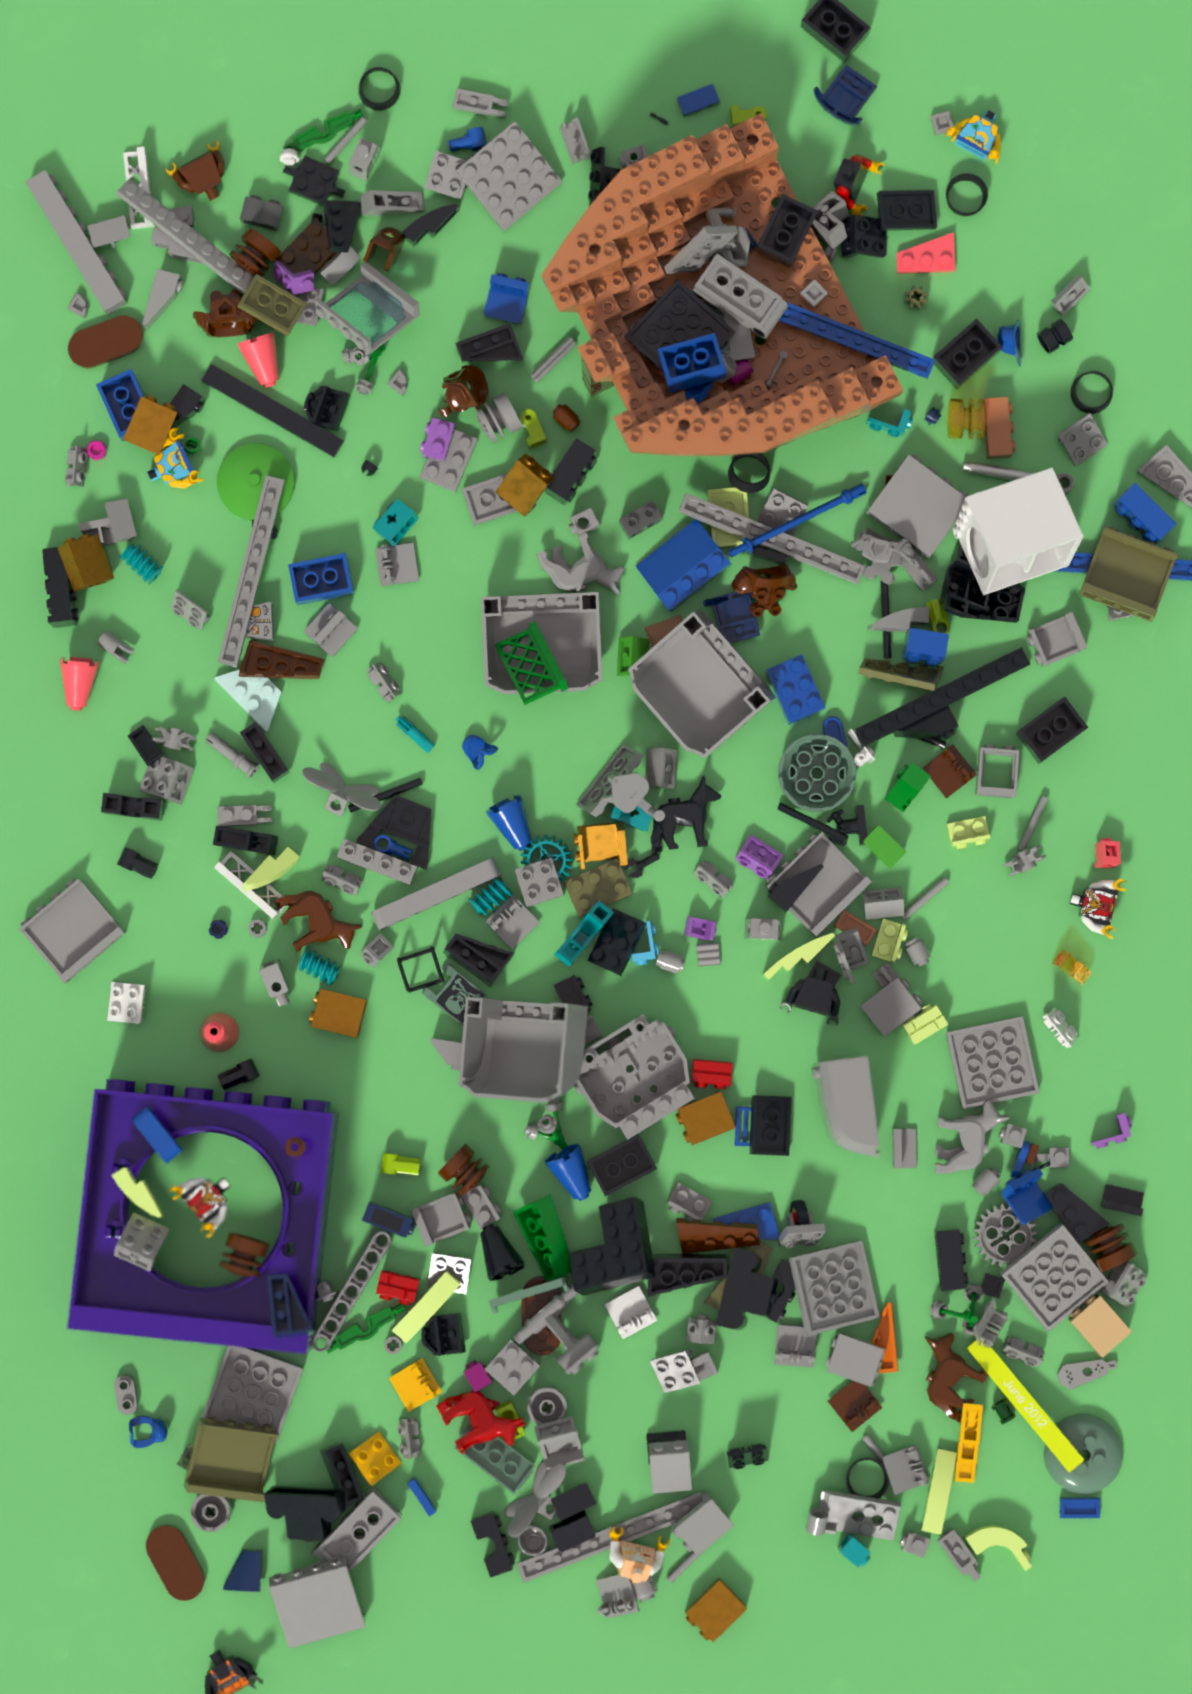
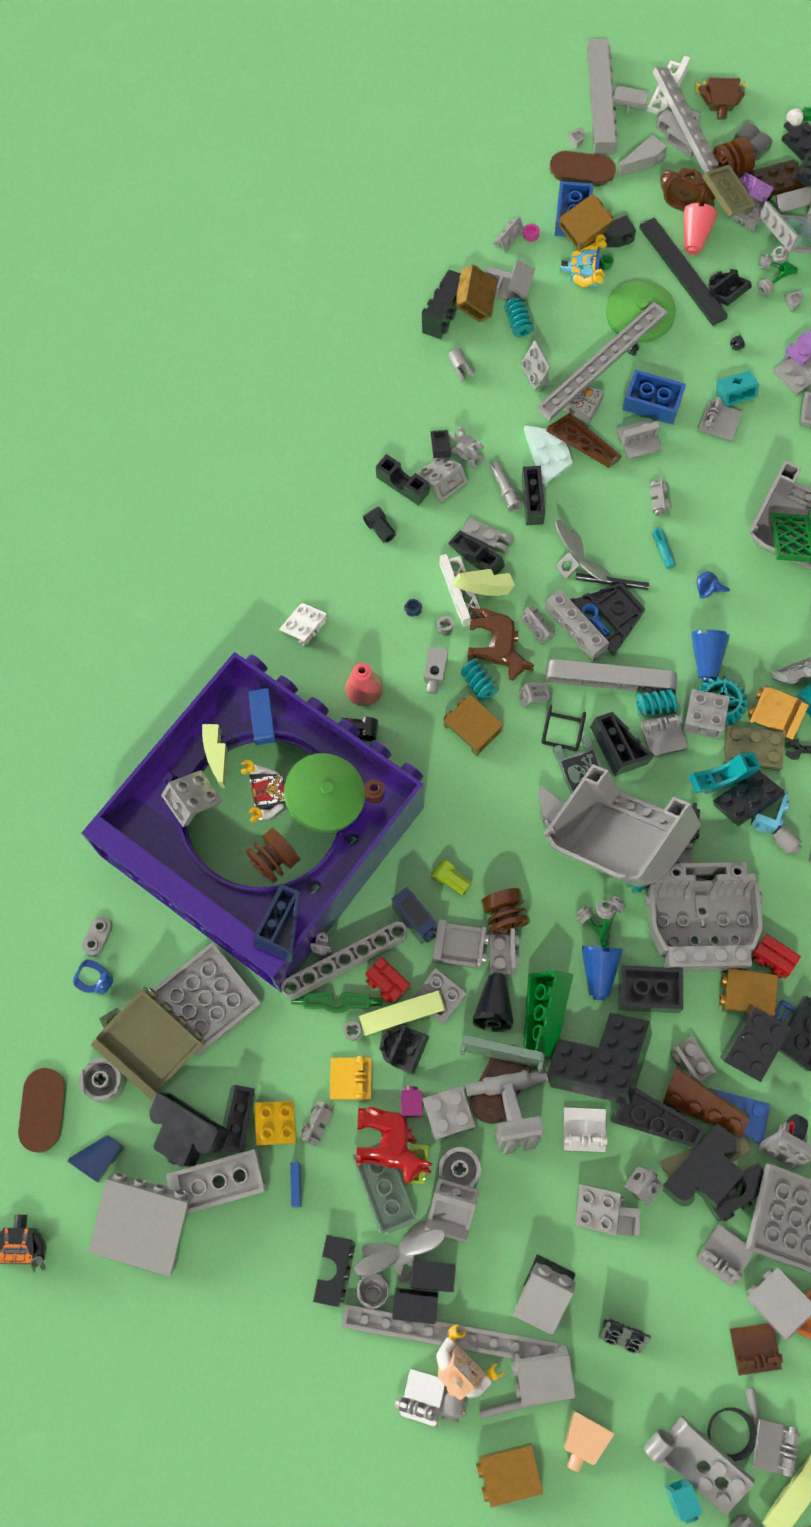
camera: 30 degrees right, 15 degrees down
(71, 930) = (295, 545): light grey panel -> none
(78, 679) = (418, 370): coral cone -> none
(253, 1172) = (324, 793): none -> bright green dish
(731, 1160) = (755, 1042): none -> black brick
(759, 1551) = (585, 1441): none -> light nougat torso

